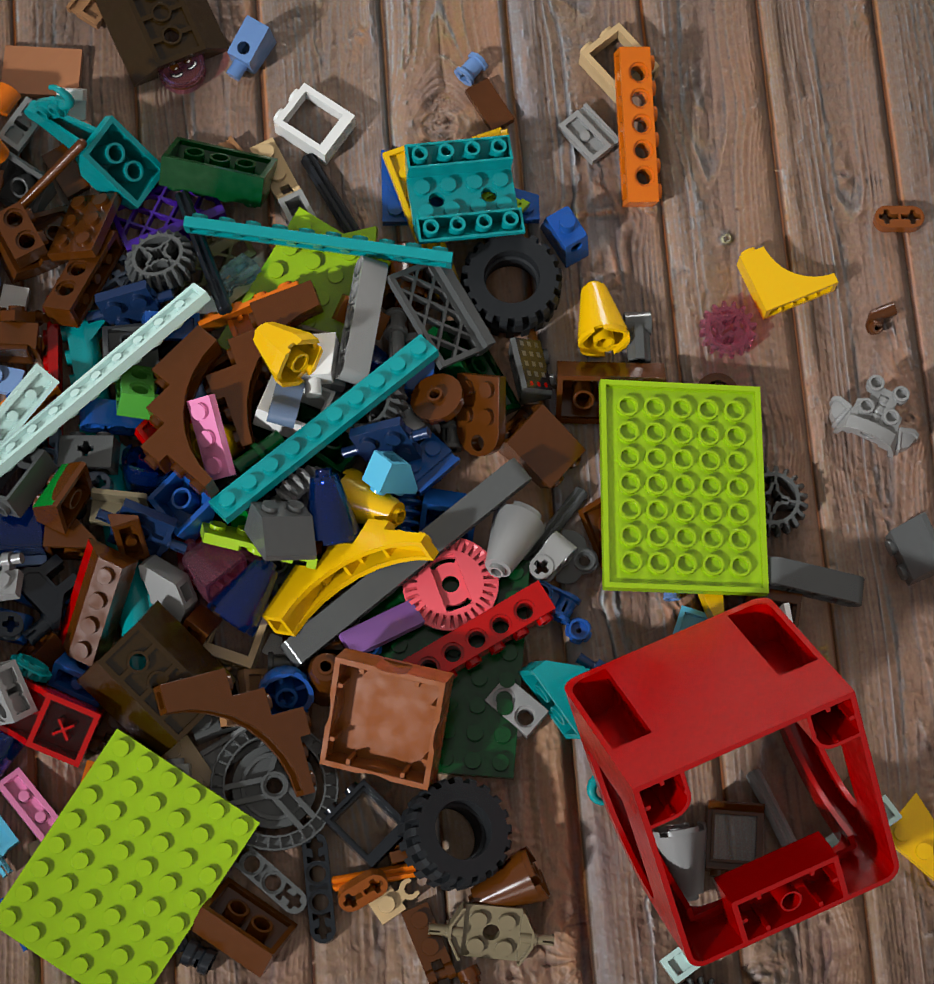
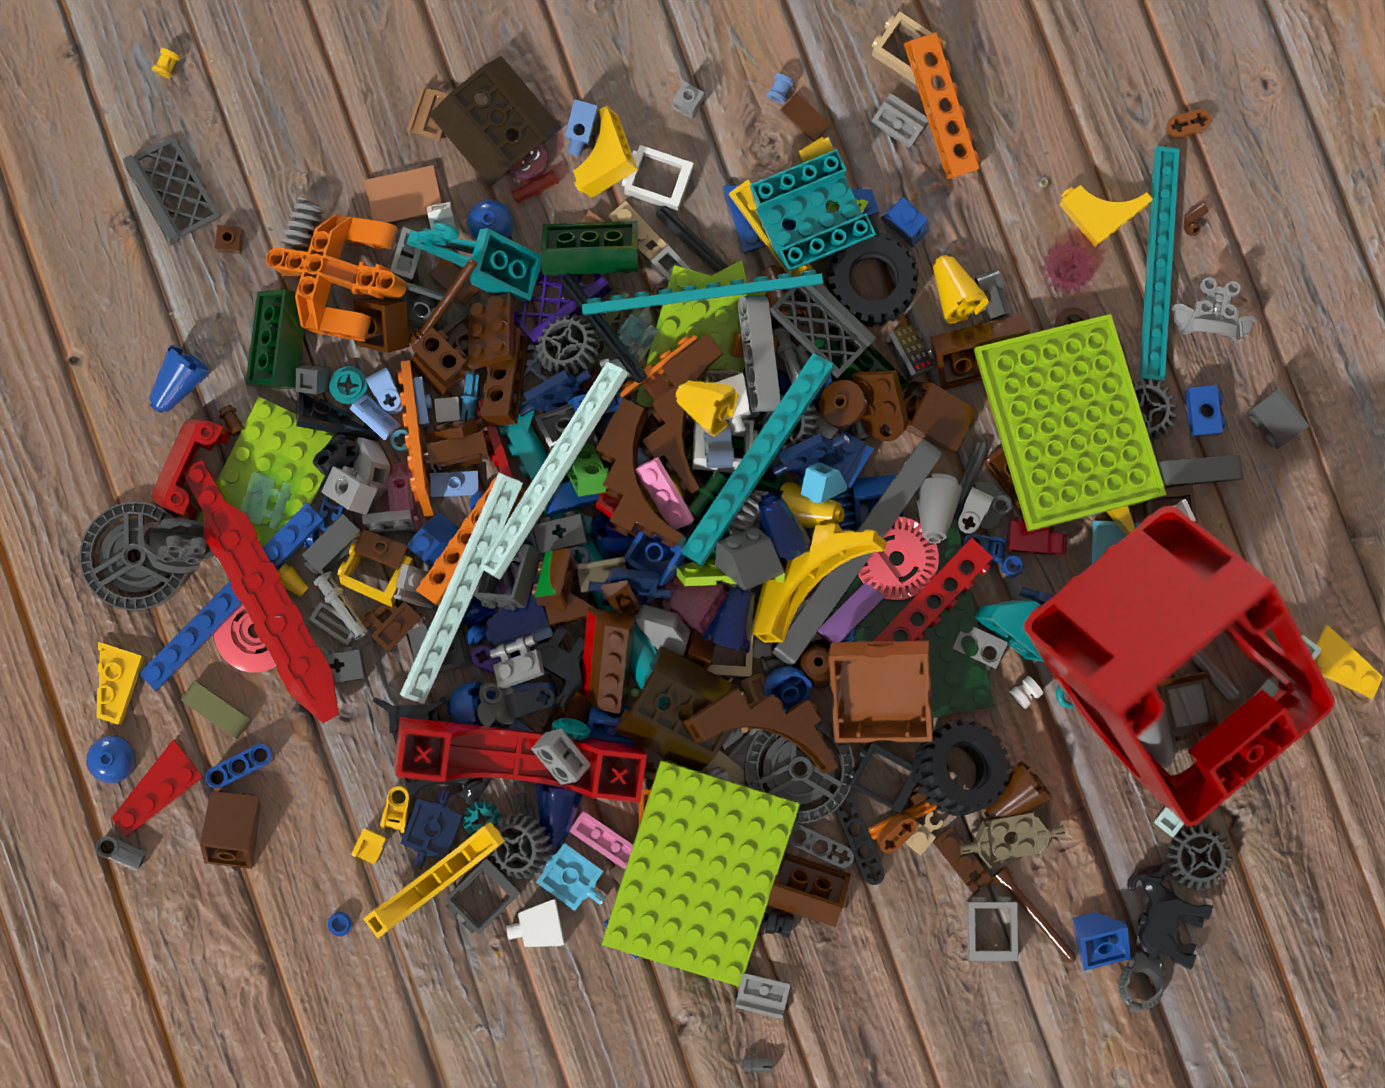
camera: 15 degrees left, 10 degrees up
(43, 289) = (470, 396): none -> dark azure axle
(128, 113) = (489, 215): none -> blue cylinder
(181, 98) = (535, 187): none -> clear red pin
(266, 89) = (609, 160): none -> yellow arch
(369, 53) = (687, 100): none -> light grey brick
(555, 773) = (1026, 692): none -> white wheel
(612, 608) = (1040, 541): none -> dark red hinge
(828, 354) = (1159, 263): none -> teal plate
(830, 535) = (1198, 424): none -> blue brick

